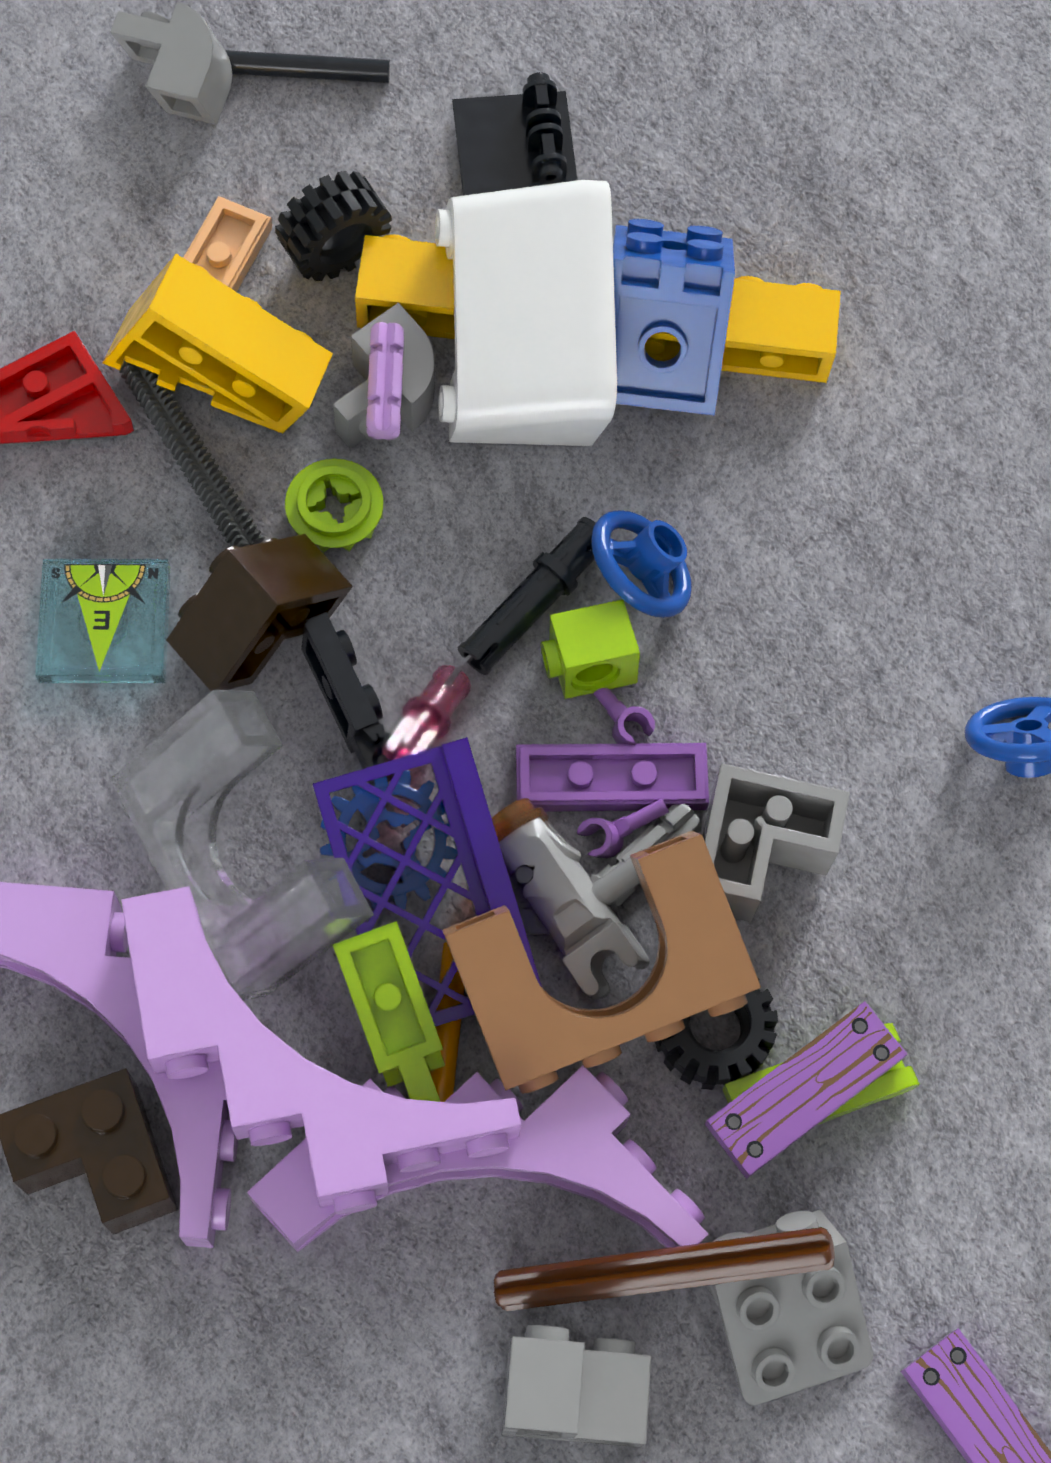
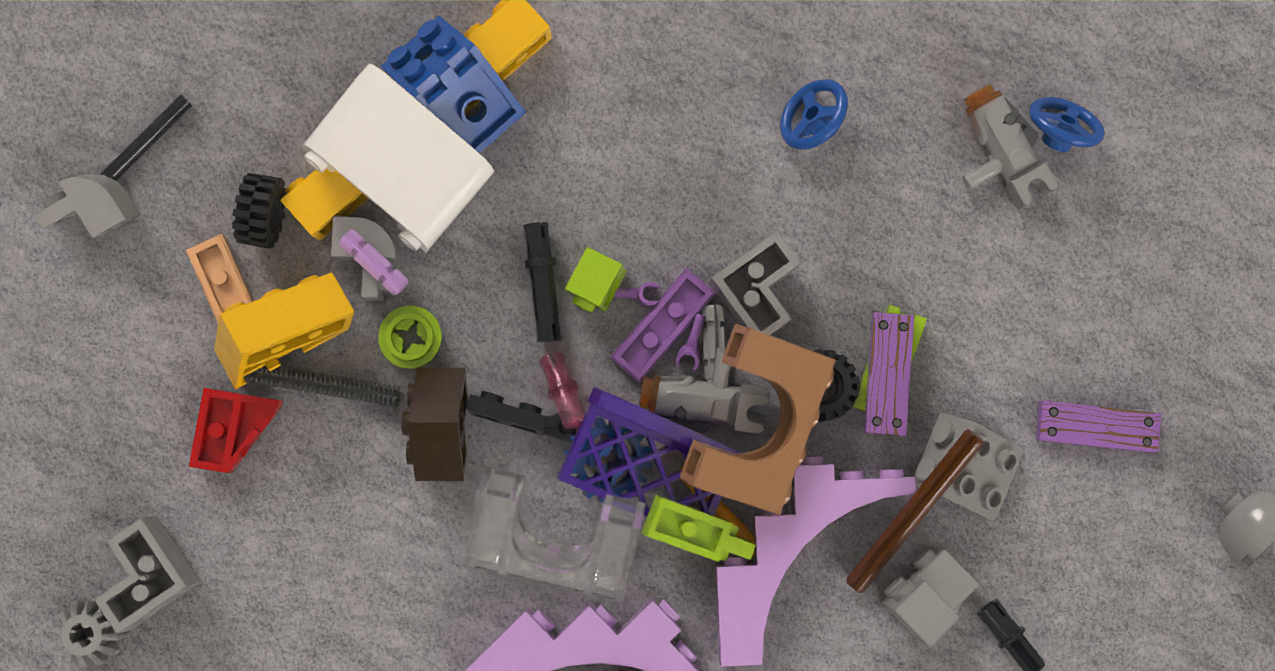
camera: 45 degrees left, 15 degrees up
(103, 621) = (374, 499): clear light blue tile -> none
(269, 1088) = (740, 601): lavender arch -> none
(515, 138) = (287, 73): black hinge -> none
(648, 557) = (576, 214): blue piece -> none

